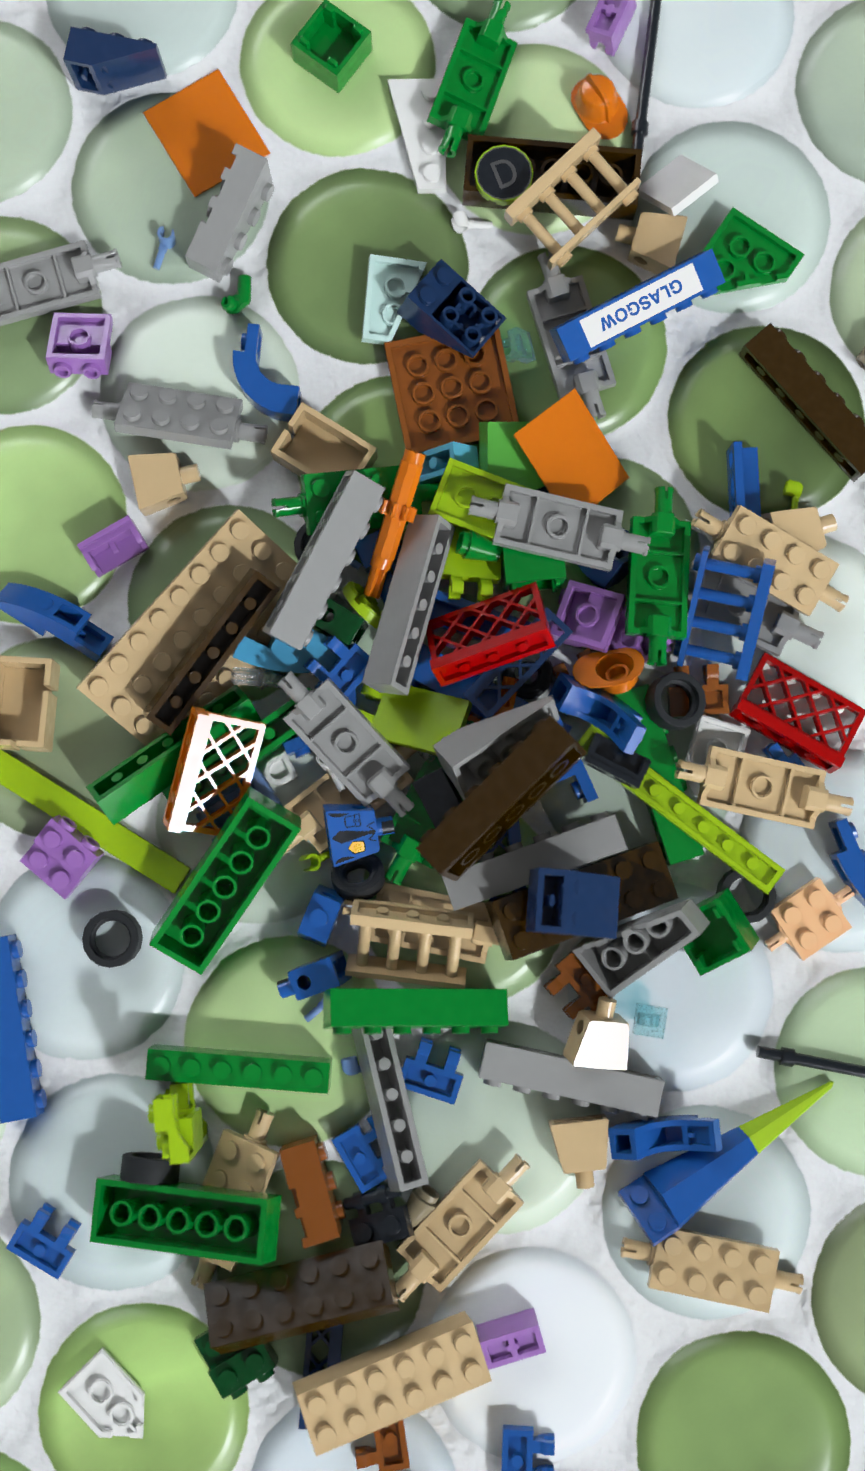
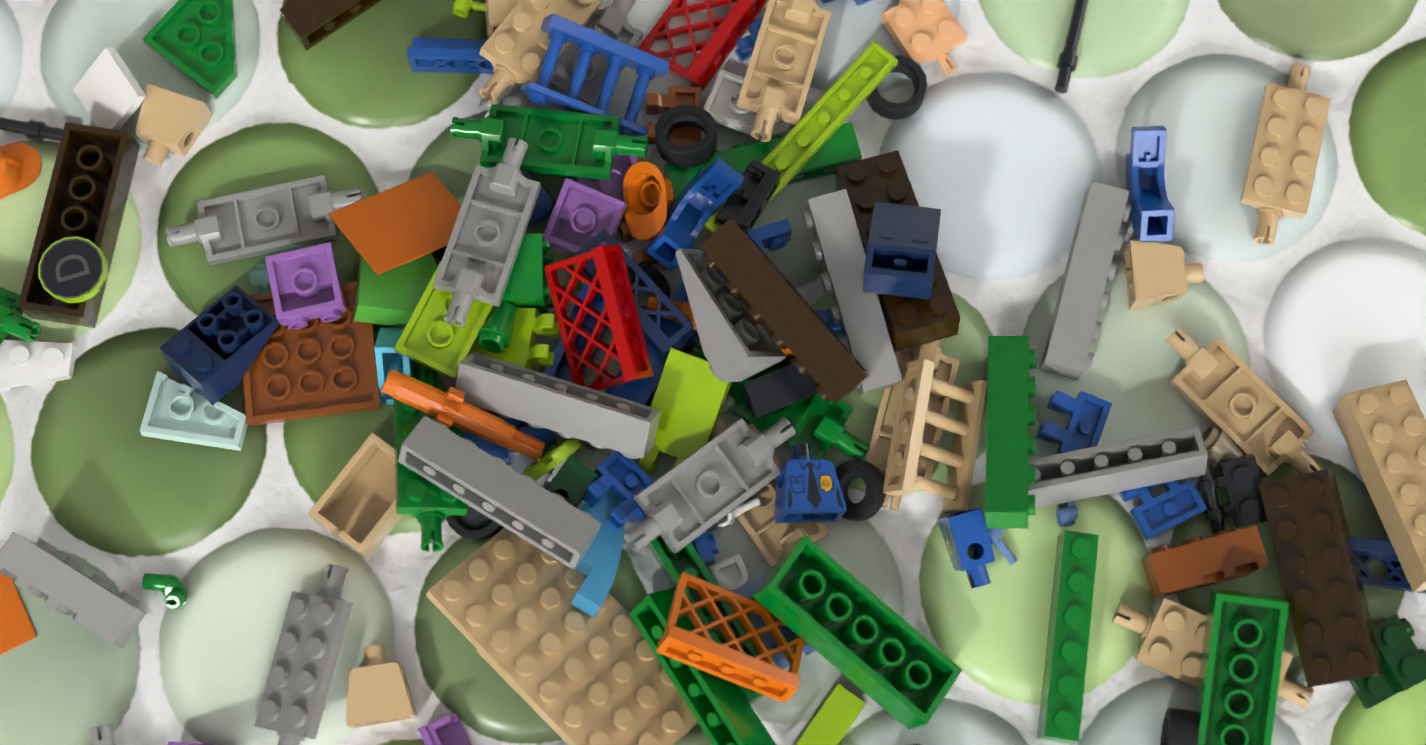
camera: 85 degrees left, 10 degrees down
(165, 243) = (91, 675): medium blue hand -> none
(178, 1123) = (1133, 695): lime bracket -> none
(210, 651) = (591, 631): dark brown brick -> none
(257, 677) = (624, 586): clear axle -> none
(269, 398) = (283, 571): blue arch -> none
(315, 860) = (836, 540): lime hand -> none
(321, 916) = (900, 533): blue torso -> none
(462, 224) = (116, 330): white hand -> none
(506, 376) = (306, 286): none -> medium lavender plate
(510, 1338) = (1360, 358): medium lavender hinge -> none
(544, 191) = (101, 225): tan fence -> none
(582, 982) = (979, 258): dark orange plate -> none
(599, 1038) = (1044, 244): torso -> none
(637, 306) = (244, 142): brick -> none
(640, 945) = (948, 184): light grey wedge -> none
(650, 1020) = (1026, 192): clear light blue tile -> none
(680, 1187) = (1202, 176): blue plate -> none
(725, 937) = (935, 118): green container -> none

